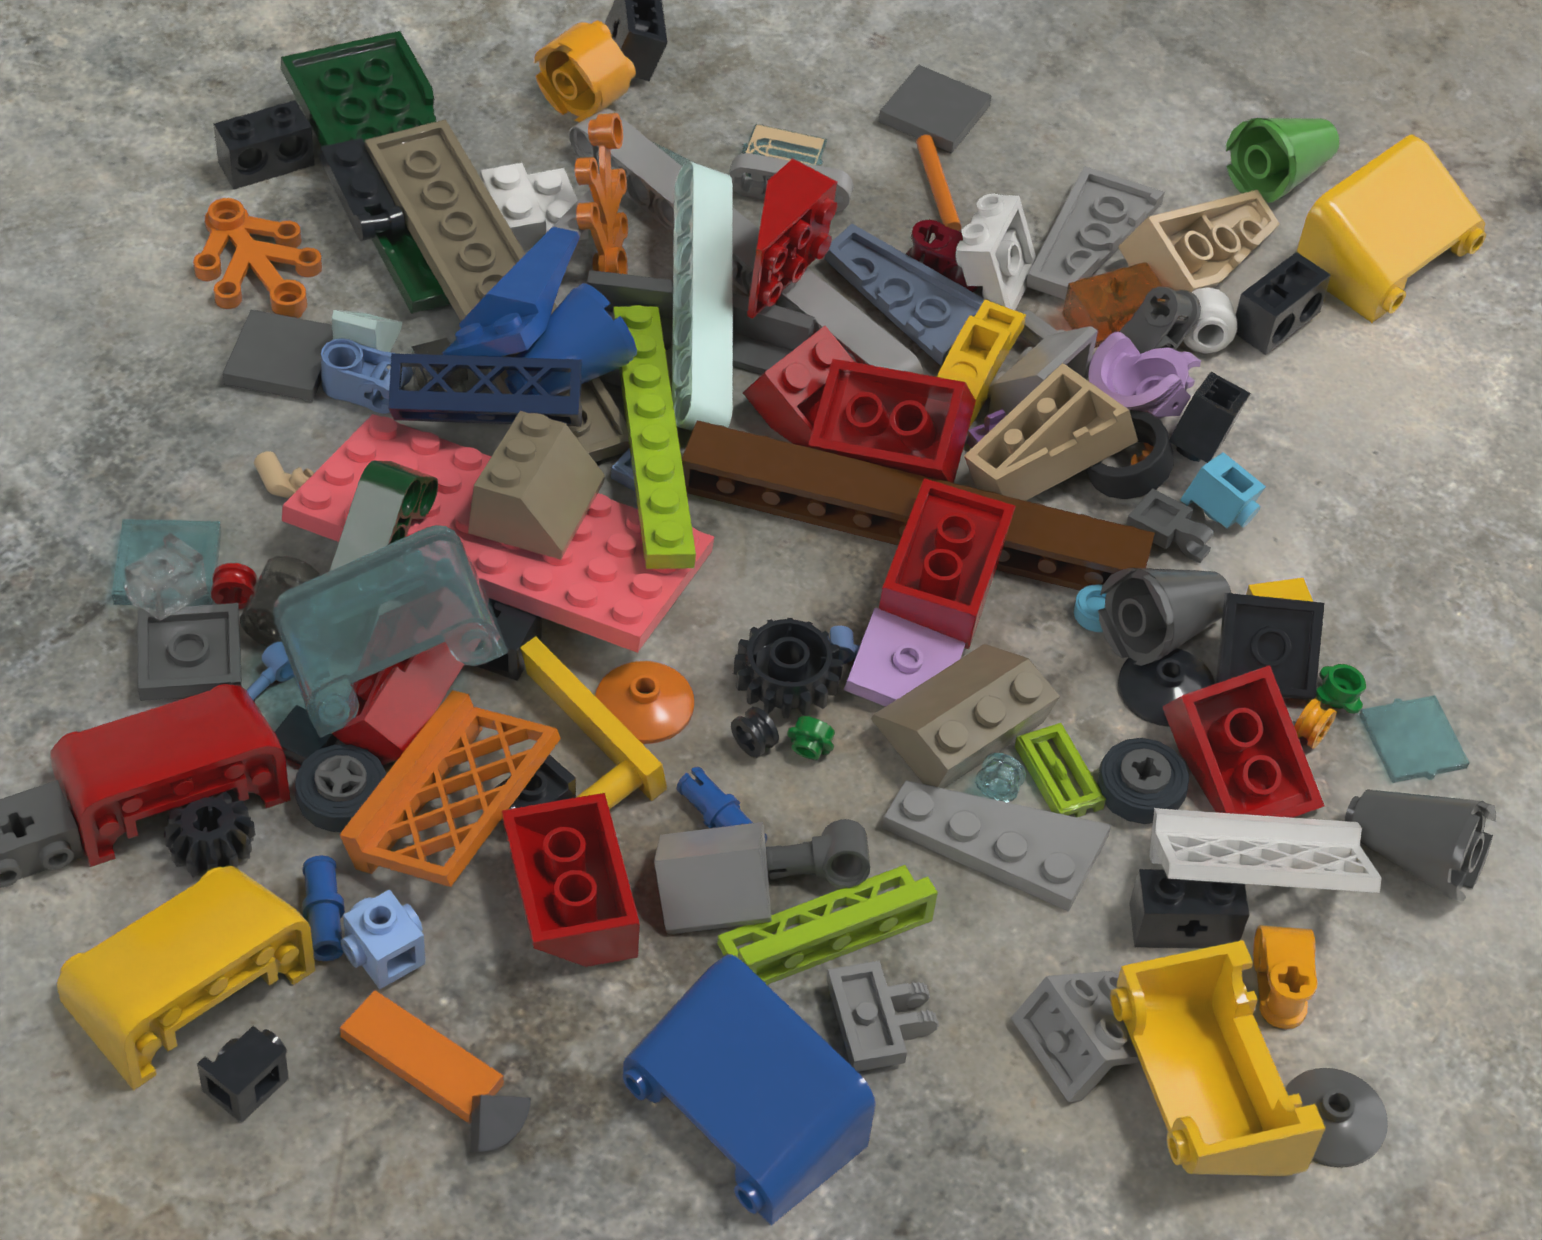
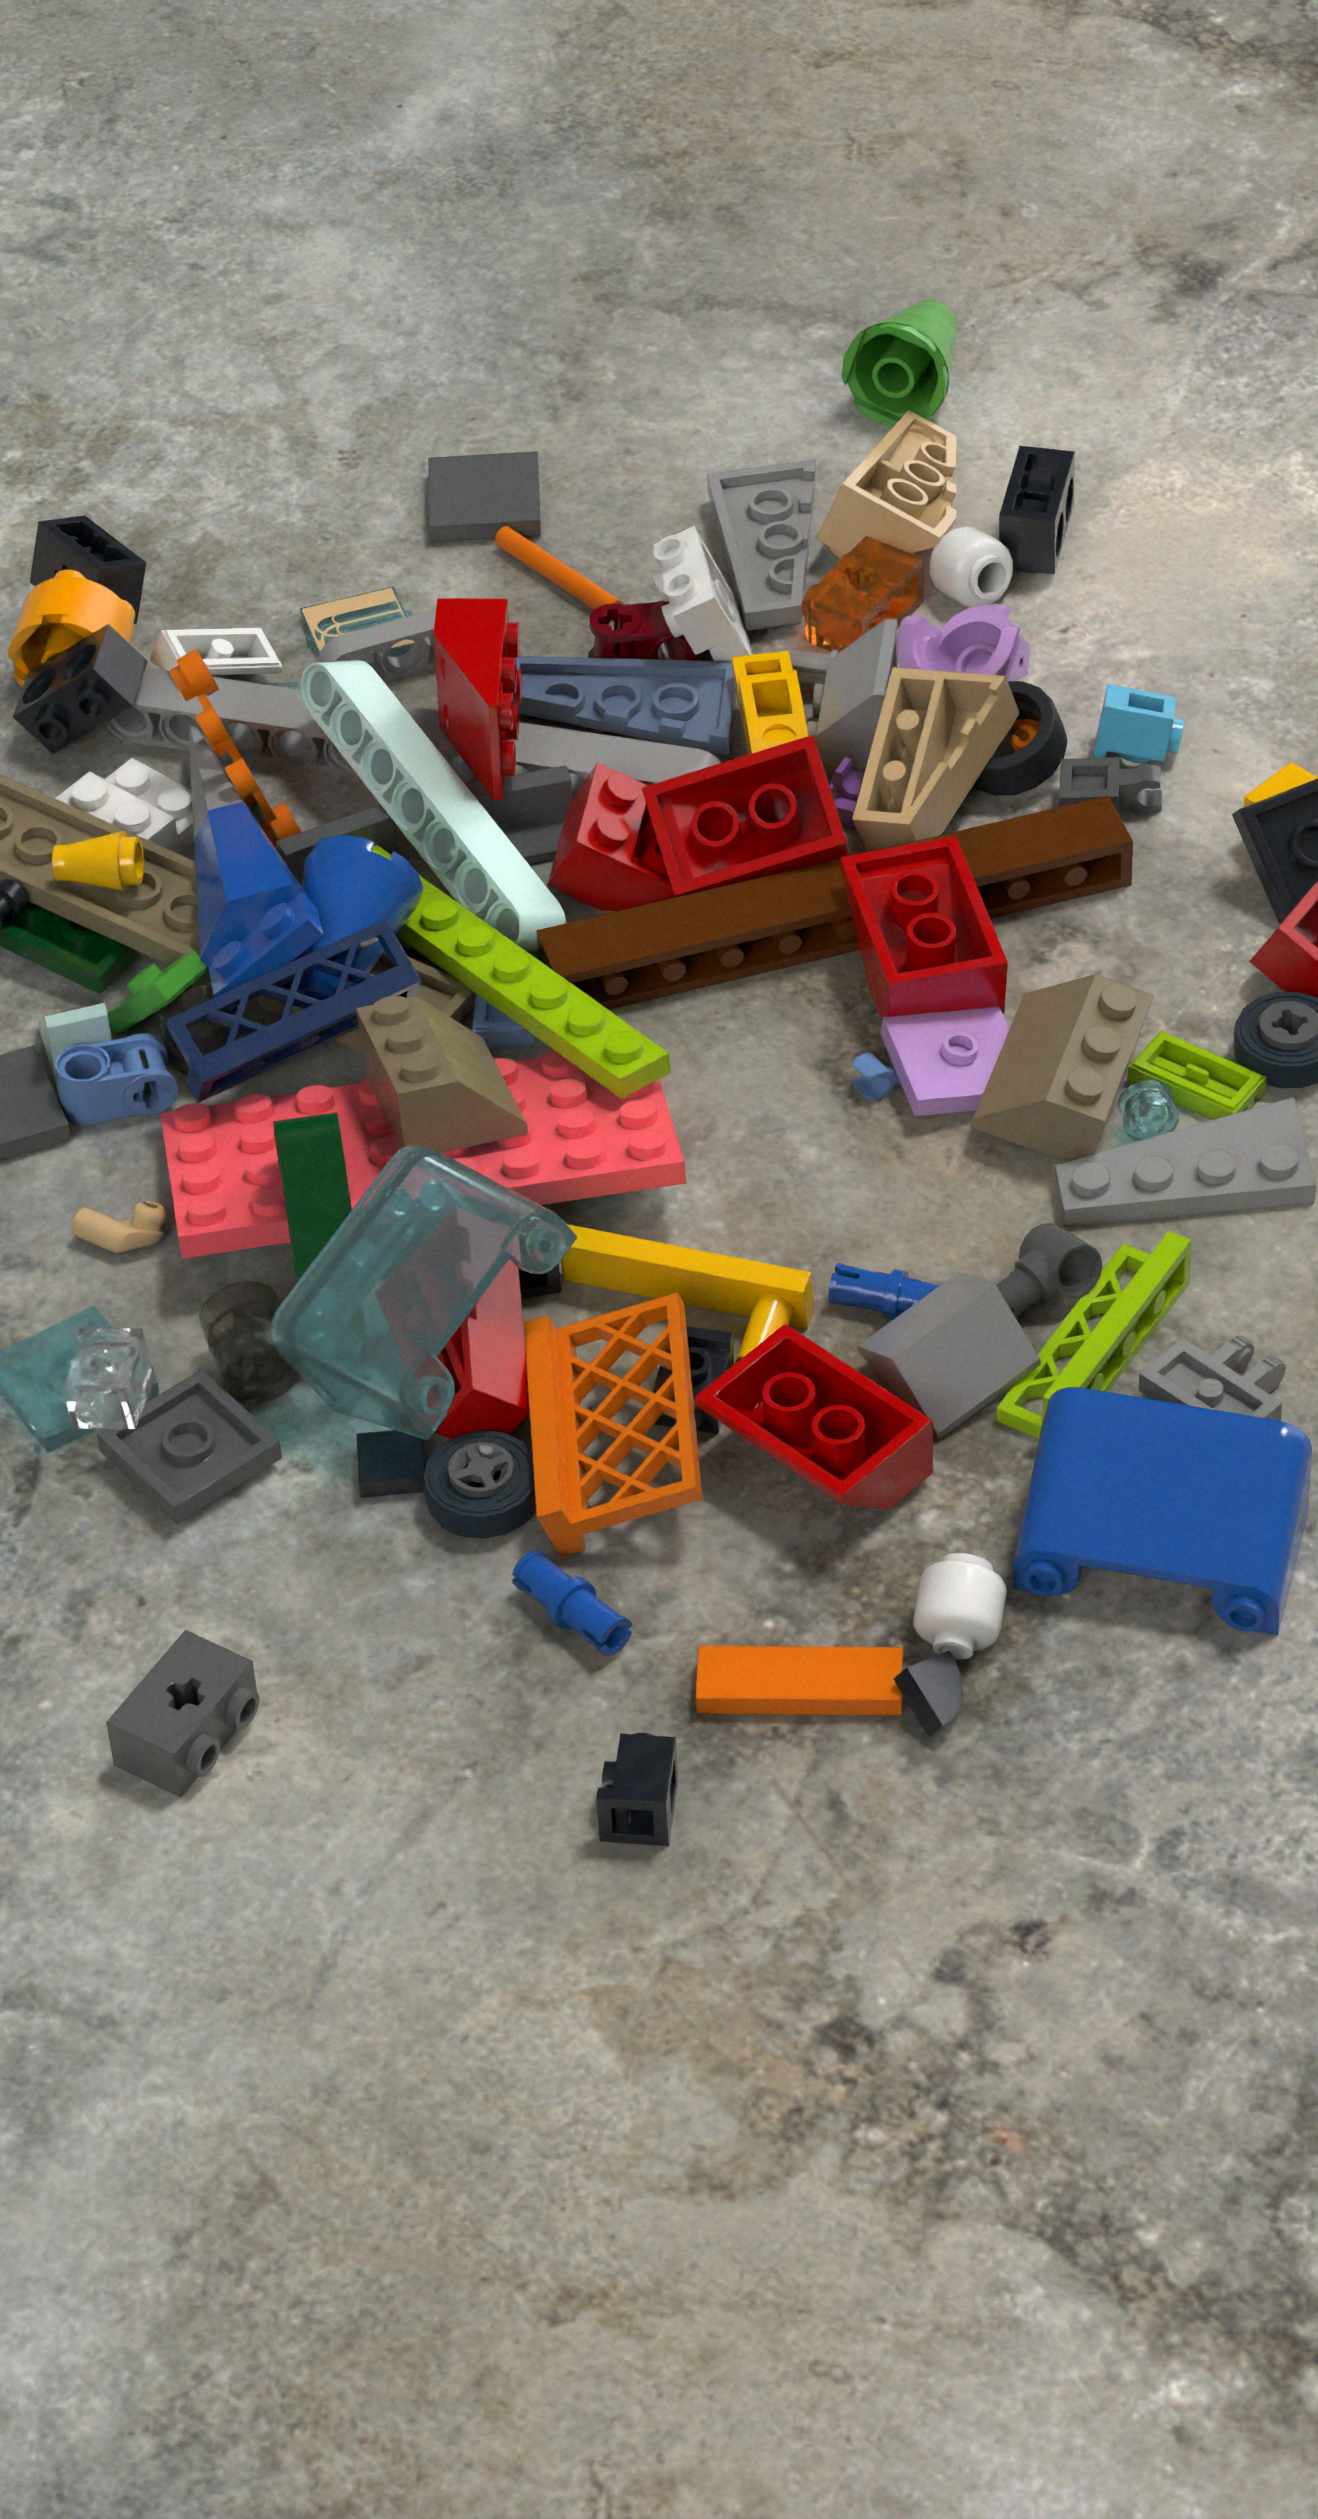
camera: 25 degrees left, 5 degrees down
(165, 762) = (284, 1551): red windscreen -> none
(180, 964) = (485, 1731): yellow windscreen -> none
(209, 833) = (386, 1599): black gear -> none
(233, 584) = (176, 1355): red bush -> none
(277, 668) = (294, 1405): medium blue hand -> none
(383, 938) = (670, 1588): light blue brick -> none
(429, 328) = (154, 990): none -> bright green plate
(460, 226) = (102, 861): none -> yellow cone
(559, 105) = (80, 688): none -> black brick
(563, 1069) = (959, 1605): none -> white head
(651, 715) = (720, 1225): orange dish -> none
(667, 125) = (222, 650): none -> white slope
(754, 732) = (861, 1215): black bush -> none
(788, 666) = (842, 1121): black gear -> none
(811, 737) = (924, 1176): green plate -> none
(1087, 607) = (1099, 906): medium azure tile -> none
(1148, 688) = (1218, 942): black dish -> none
(1158, 323) = (926, 591): dark grey piece -> none
(1159, 609) = (1172, 871): dark grey cone -> none
(1208, 418) = (1068, 657): black brick -> none
(1388, 226) = (1086, 378): yellow windscreen -> none

